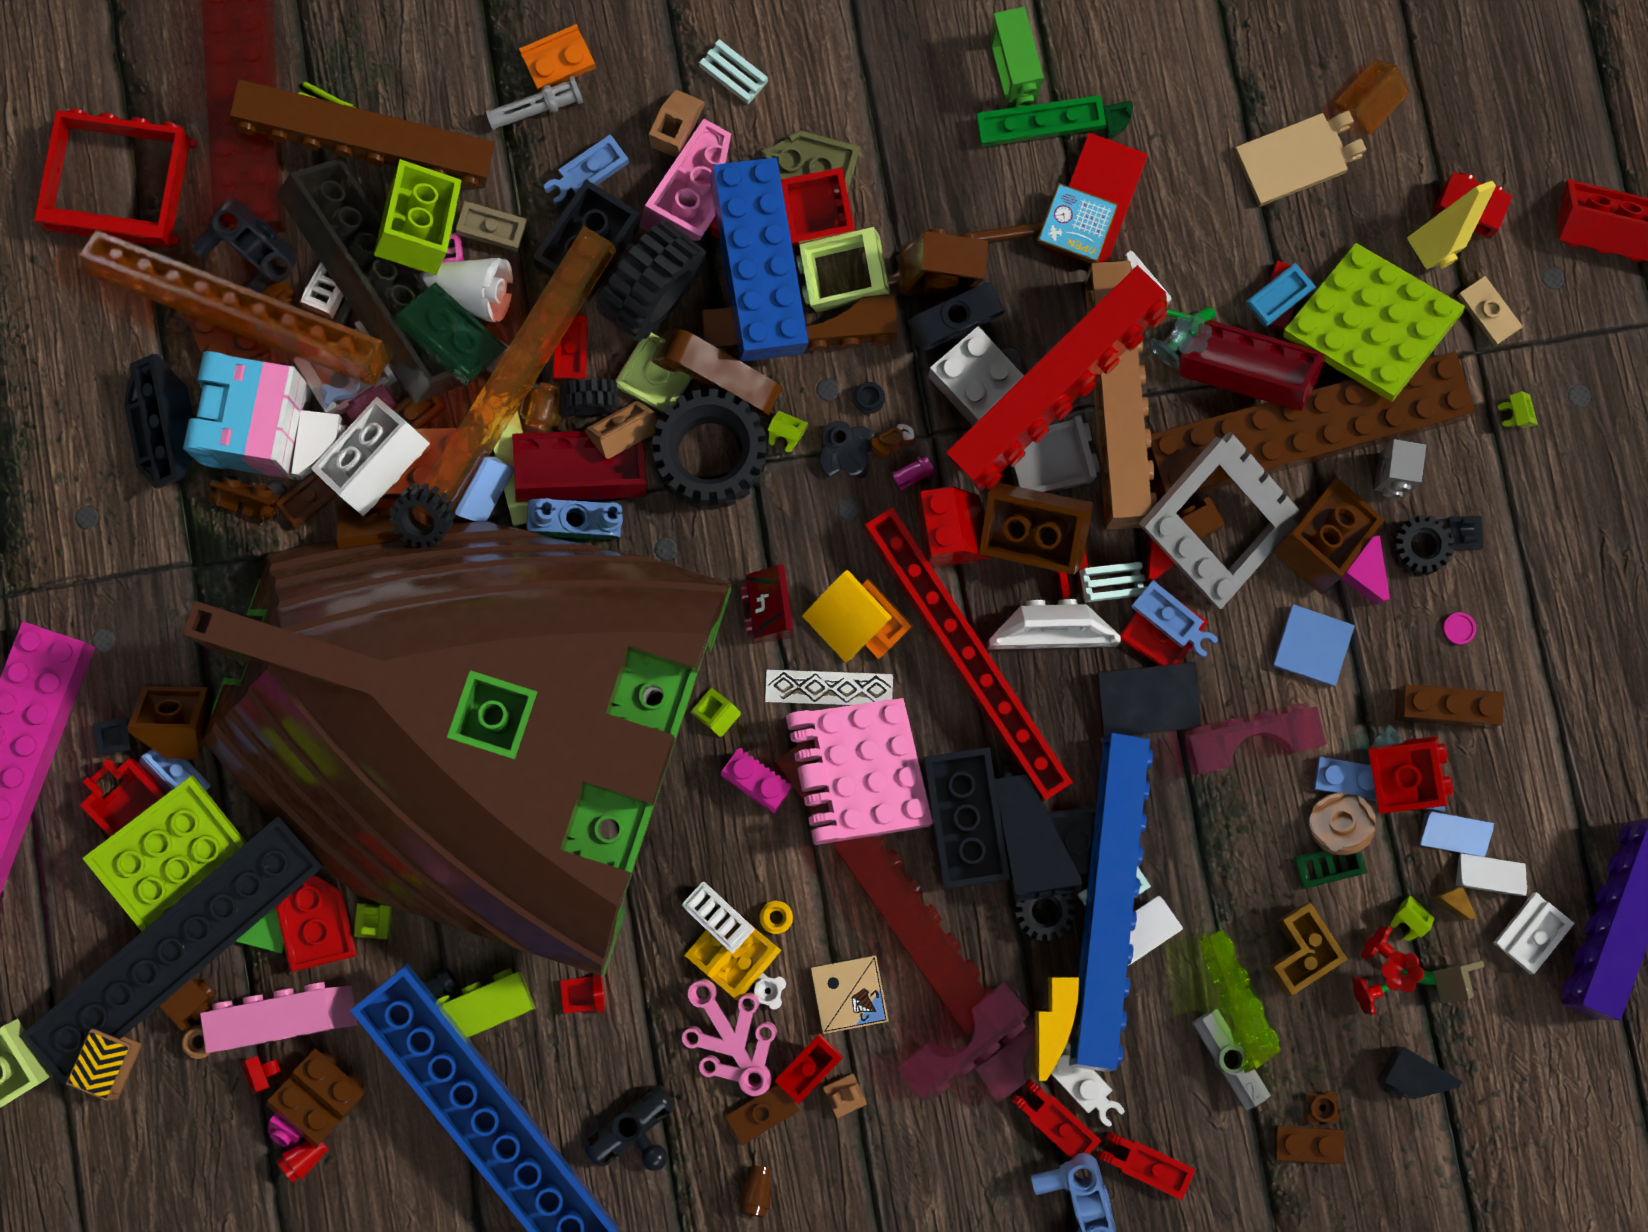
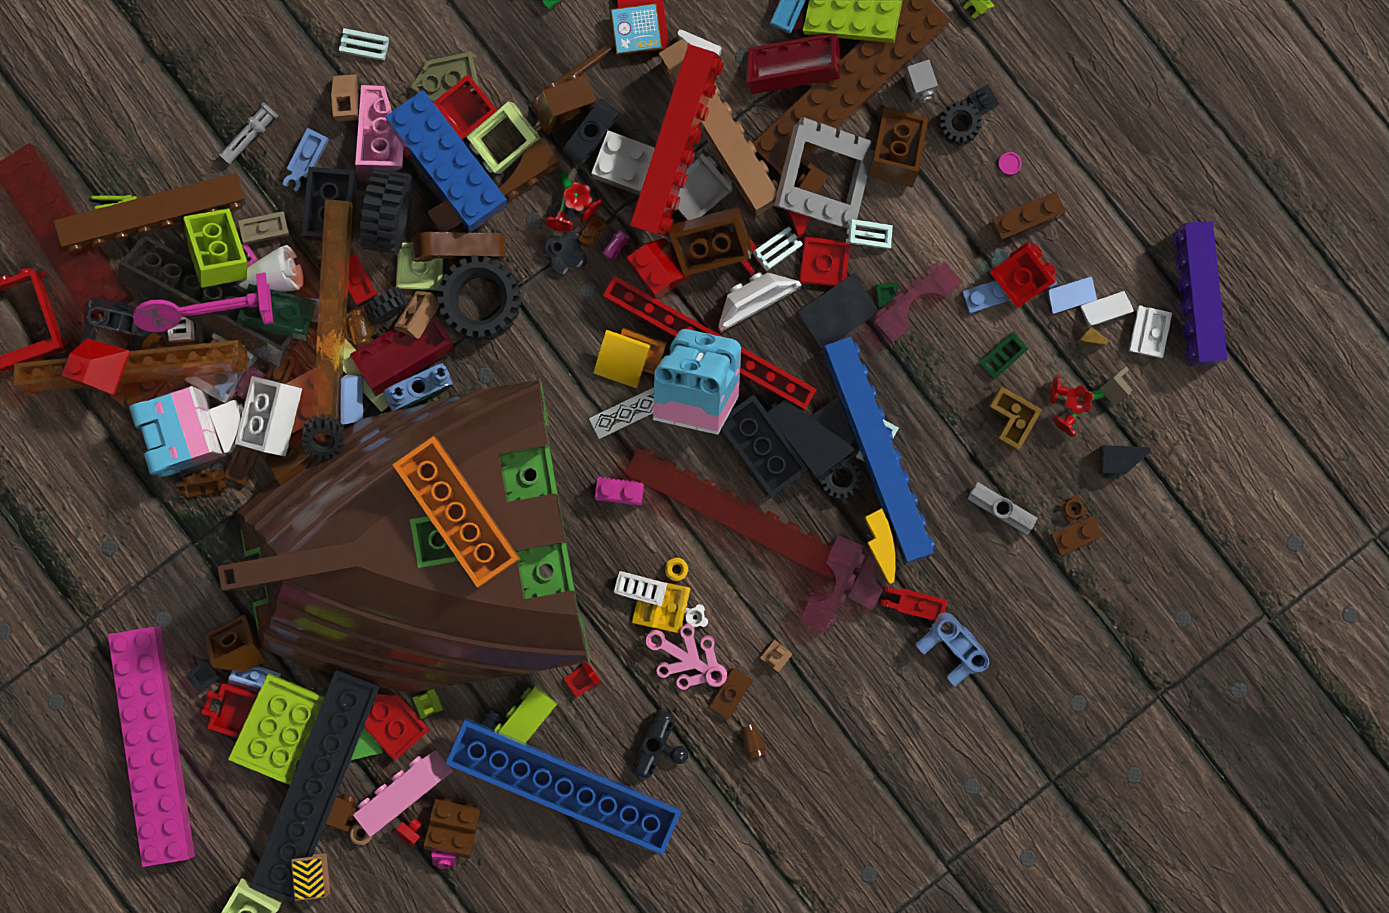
camera: 15 degrees left, 5 degrees up
(158, 420) = (122, 464): black wedge -> none
(191, 282) = (96, 366): none -> red slope
(300, 1160) = (463, 870): red cone -> none
(308, 264) = (165, 315): none -> dark pink piece
(533, 691) = (456, 512): none -> orange brick
(557, 58) = (246, 95): orange plate -> none
(716, 712) = (571, 461): lime slope -> none
(768, 605) = (569, 378): dark red slope -> none
(787, 427) = (519, 258): lime tile -> none
(808, 1068) = (745, 651): red slope -> none
(849, 994) = (746, 592): tile -> none
(864, 767) = (686, 457): bright pink hinge -> none
(896, 385) = (575, 197): none -> red plant
(928, 692) = (697, 381): none -> medium azure piece
(1085, 1087) = (920, 572): white plate -> none
(1150, 1166) = (986, 600): red hinge -> none
(1153, 927) = (912, 453): white slope -> none
(1172, 618) = (826, 252): medium blue plate -> none
(1188, 336) = (743, 66): clear light blue plant -> none
(1218, 610) = (852, 232): none -> light aqua tile
(1220, 708) = (885, 293): none -> dark green tile
(1239, 1001) = (989, 470): clear neon green wing -> none
(1313, 645) = (923, 222): medium blue tile -> none
(1342, 823) = (997, 326): medium nougat tile -> none
(1368, 573) = (934, 158): dark pink slope -> none
(1415, 917) = (1071, 360): lime tile -> none

